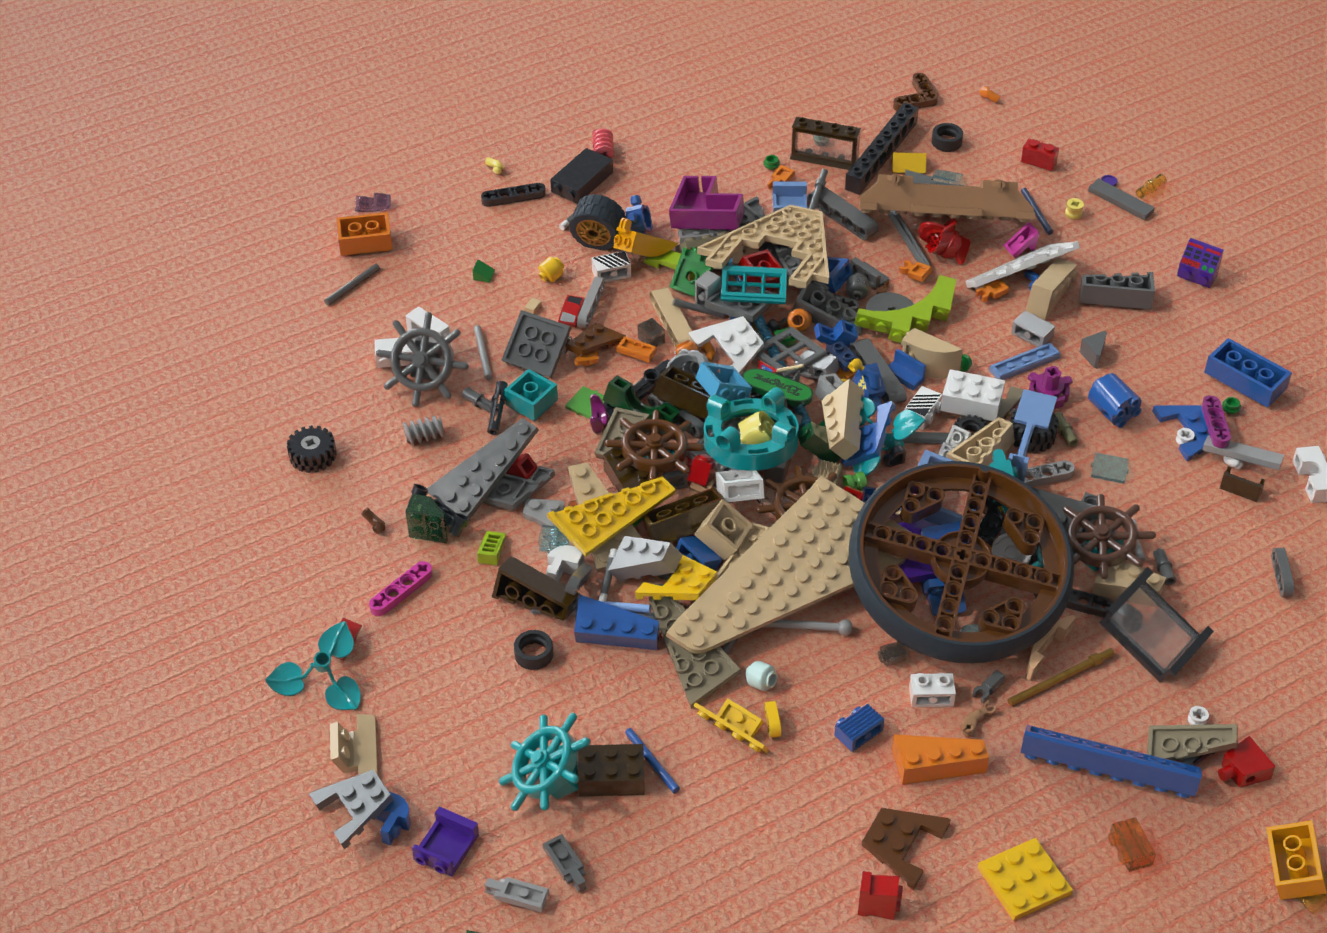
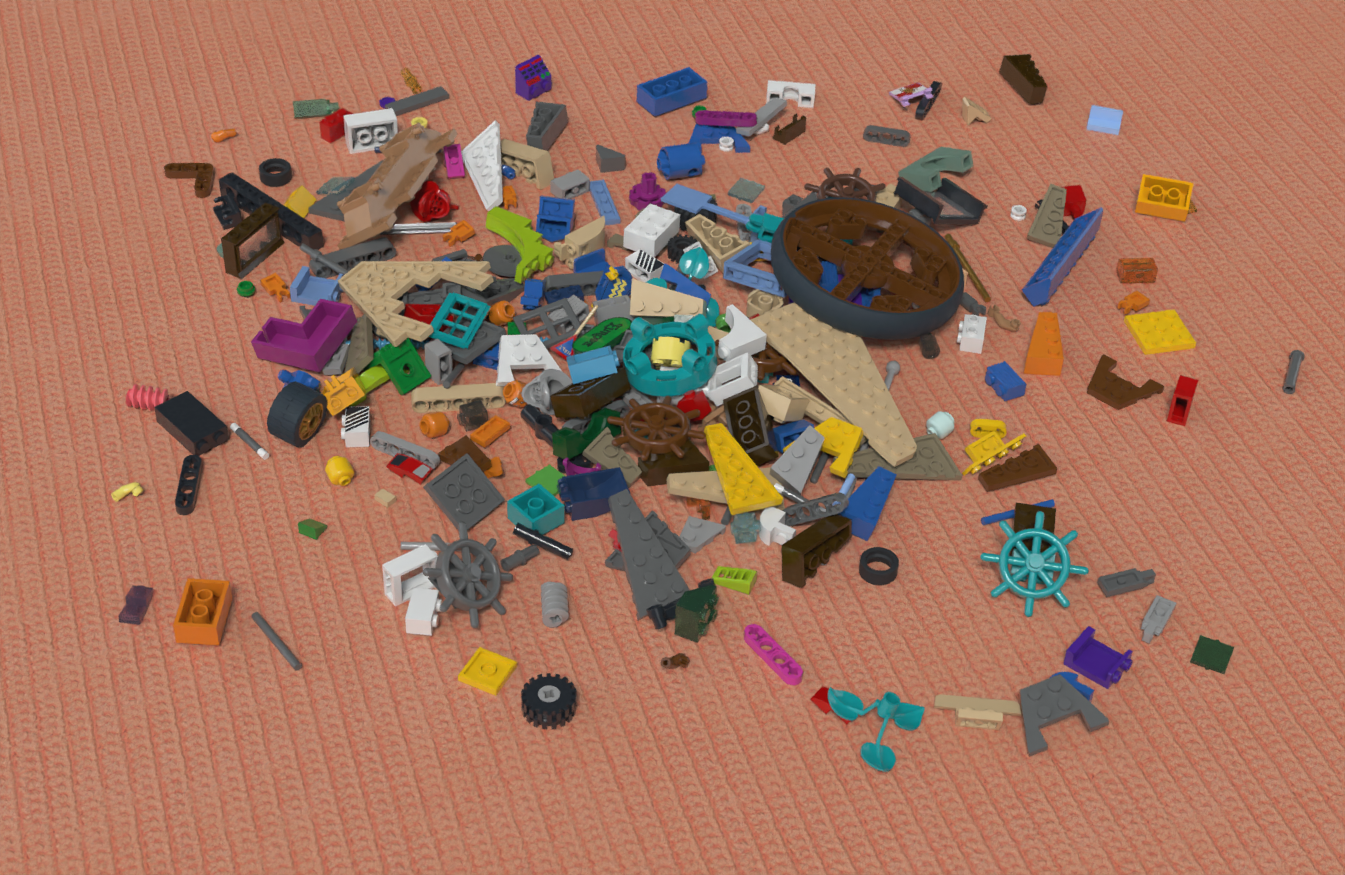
camera: 80 degrees left, 5 degrees down
(344, 409) = (487, 671): none -> yellow tile
(566, 423) = (588, 493): none -> dark blue piece
(629, 311) = (434, 424): none -> orange head
(717, 754) = (1024, 468): none -> reddish brown wing
(795, 477) = (743, 336): none -> white arch
(874, 127) = (228, 212): none -> black hinge
(966, 327) = (555, 217): none -> blue piece
(1036, 174) = (369, 129): none -> white brick
(1062, 135) = (313, 108): none -> clear green hinge
(1067, 847) = (1133, 301): none -> orange plate
(1210, 604) = (925, 171): none -> sand green arch

